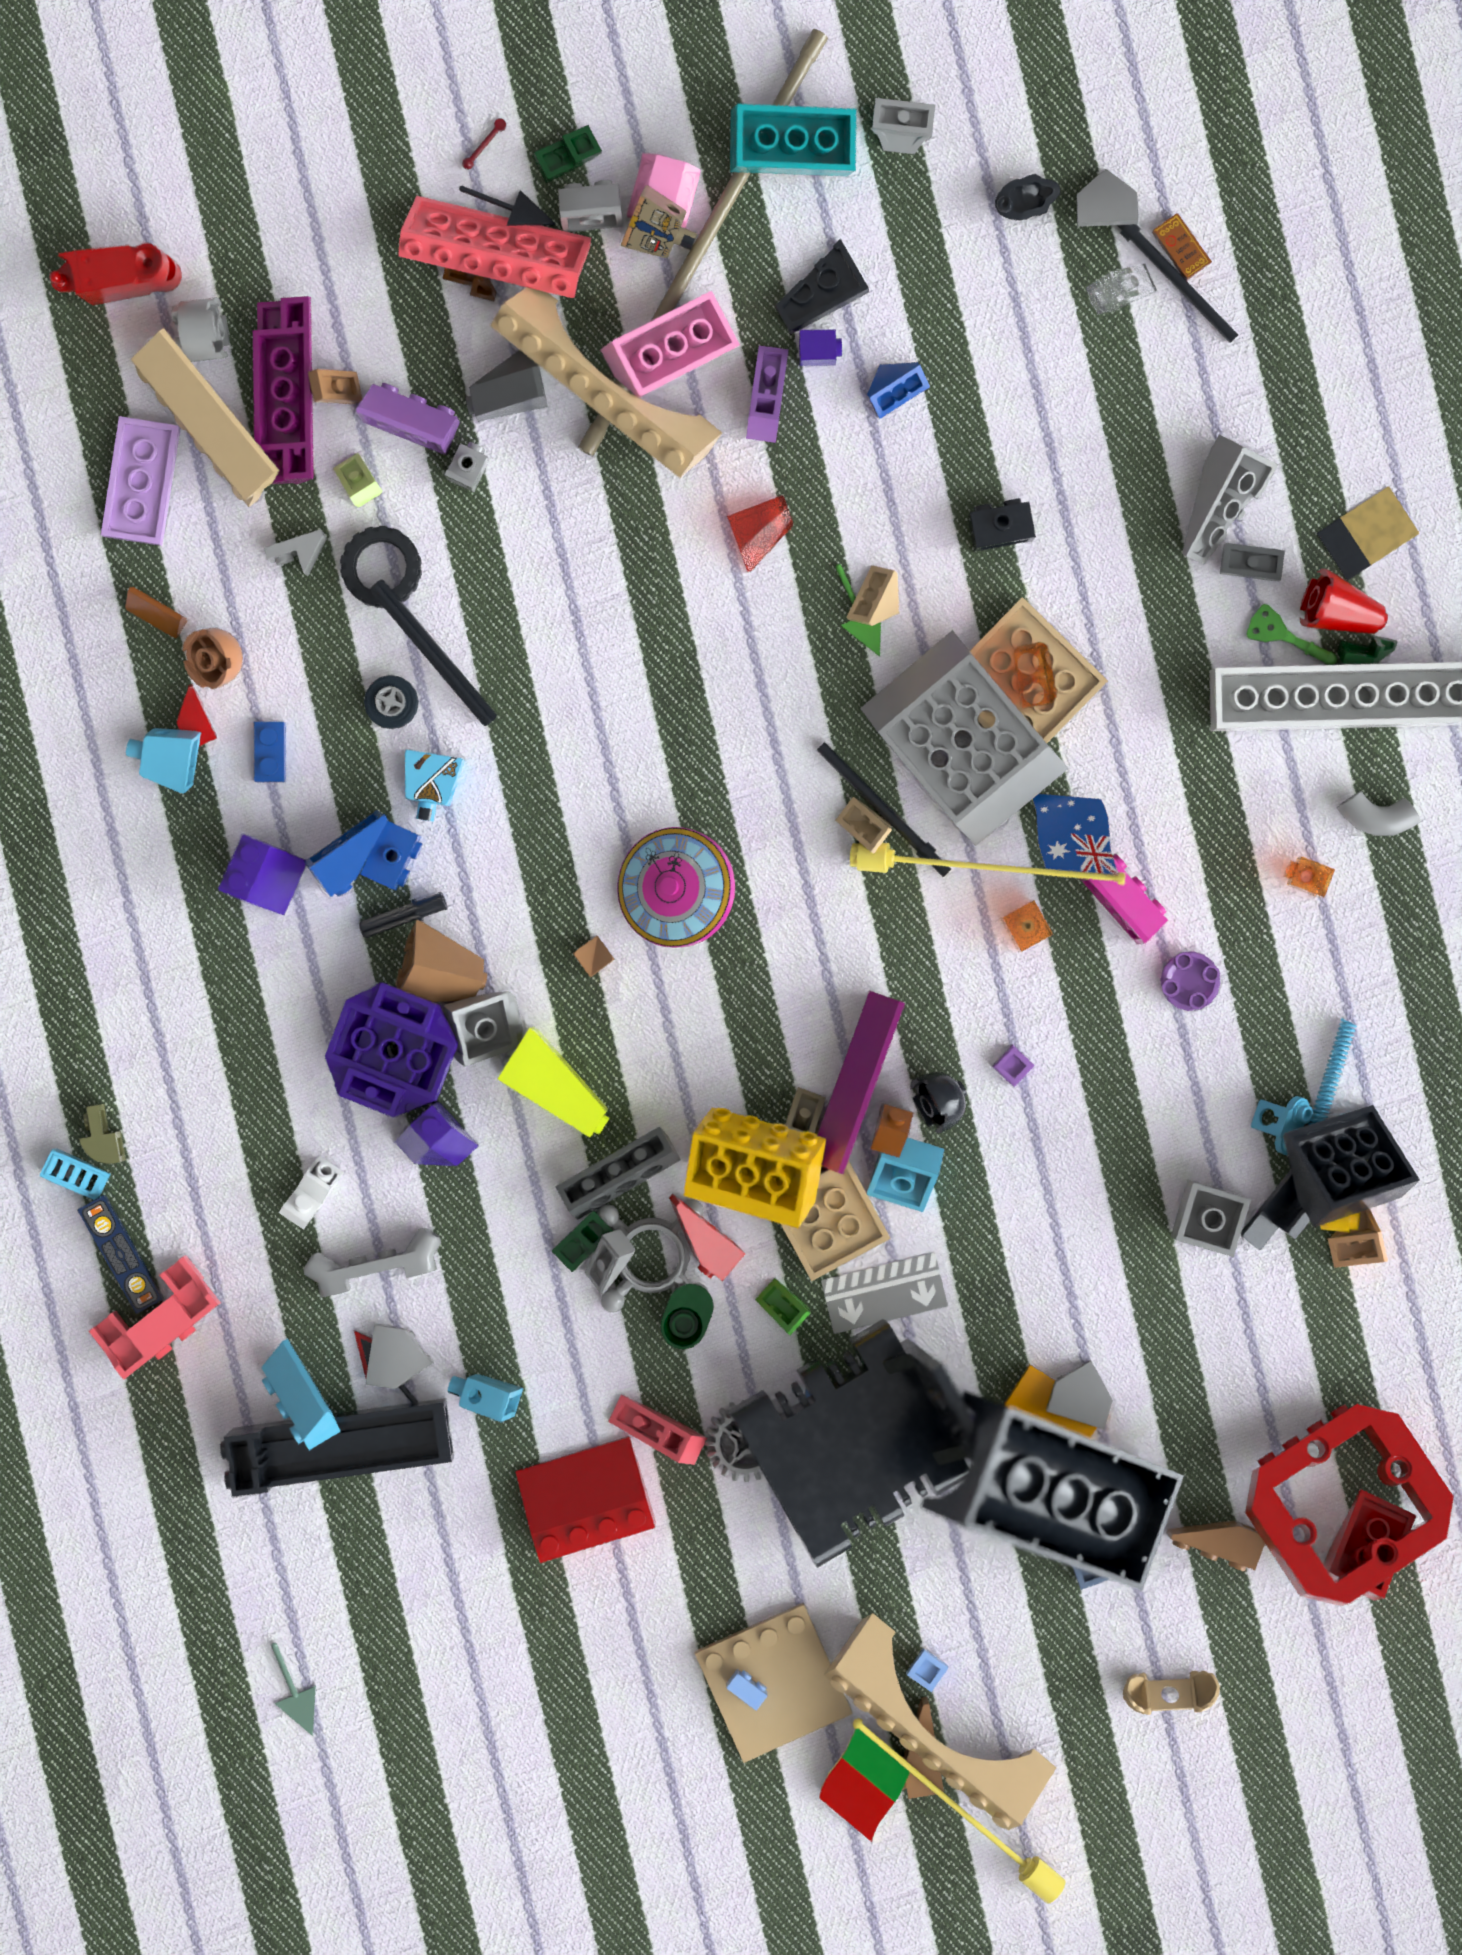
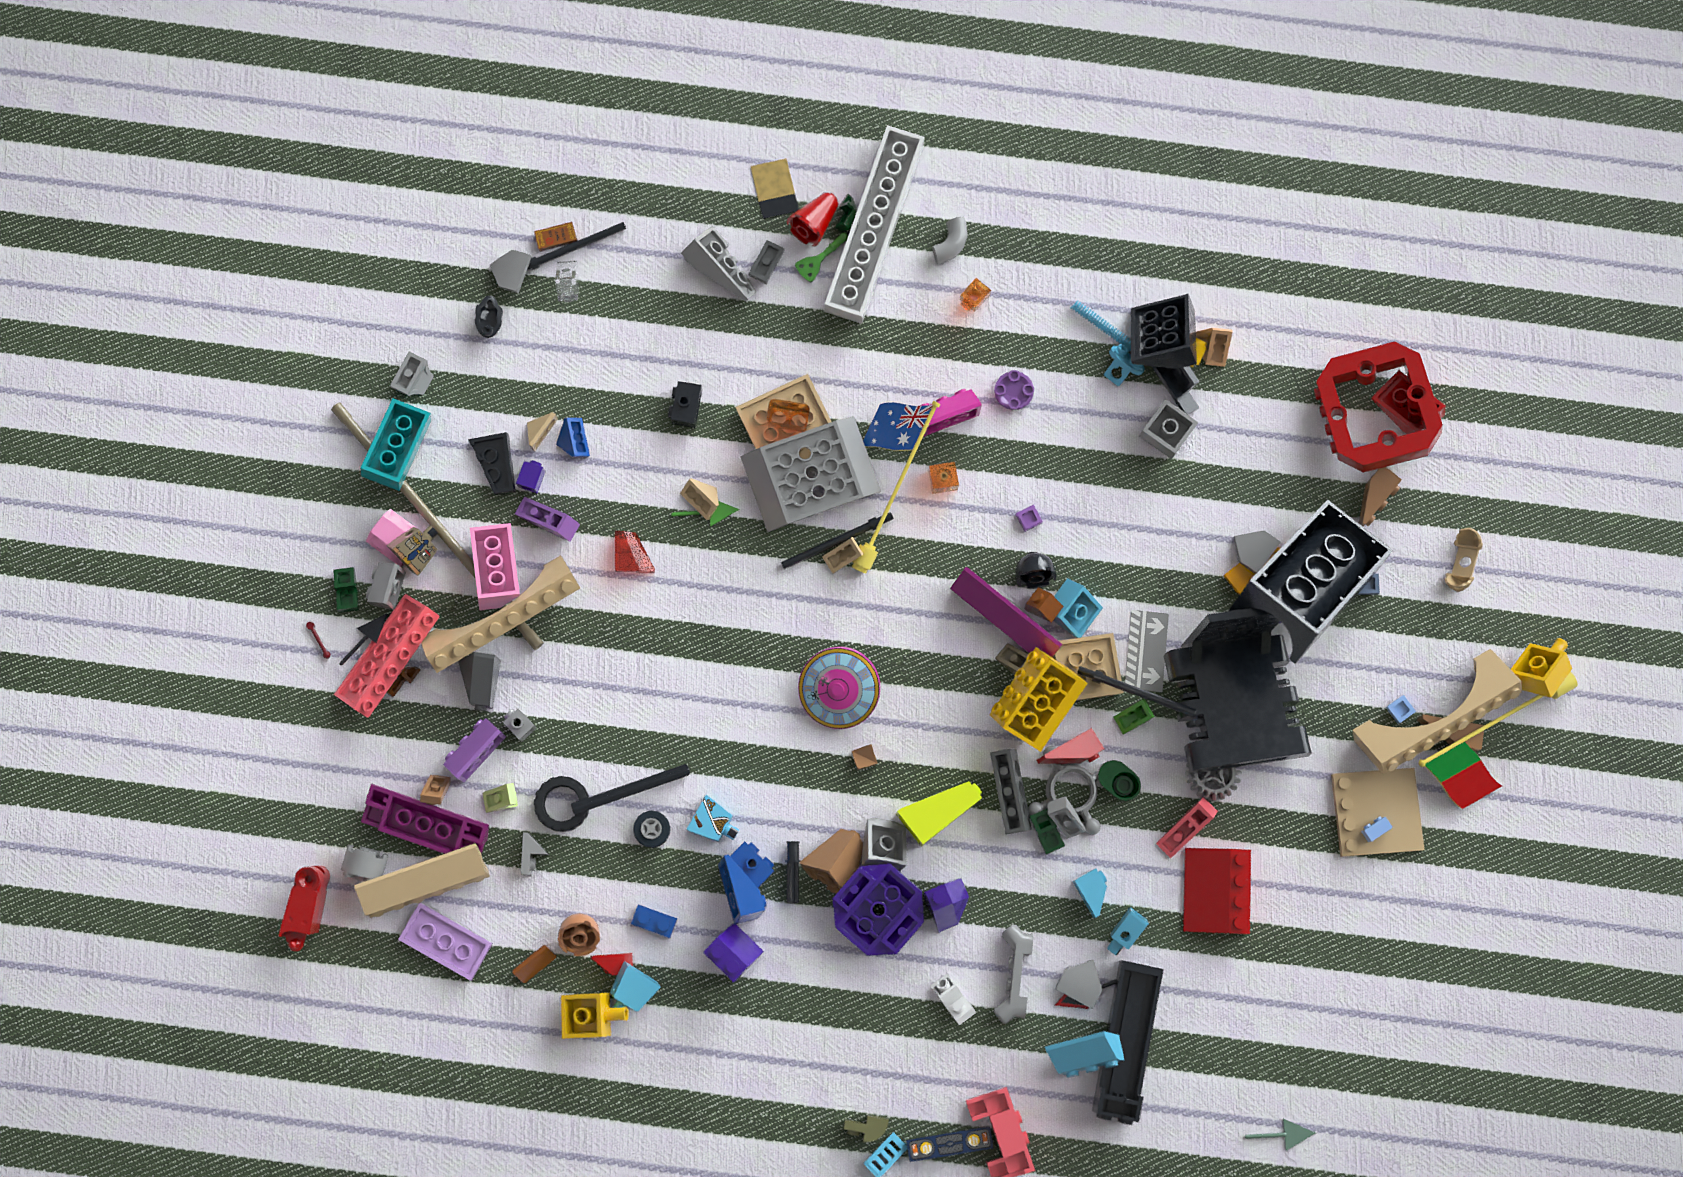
camera: 75 degrees left, 10 degrees down
(110, 711) = (589, 1015): none -> yellow brick
(525, 1329) = (1092, 890): none -> medium azure slope
(819, 1240) = (1099, 677): none -> black bar
(890, 332) = (539, 429): none -> tan slope
(1052, 1849) = (1543, 668): none -> yellow brick

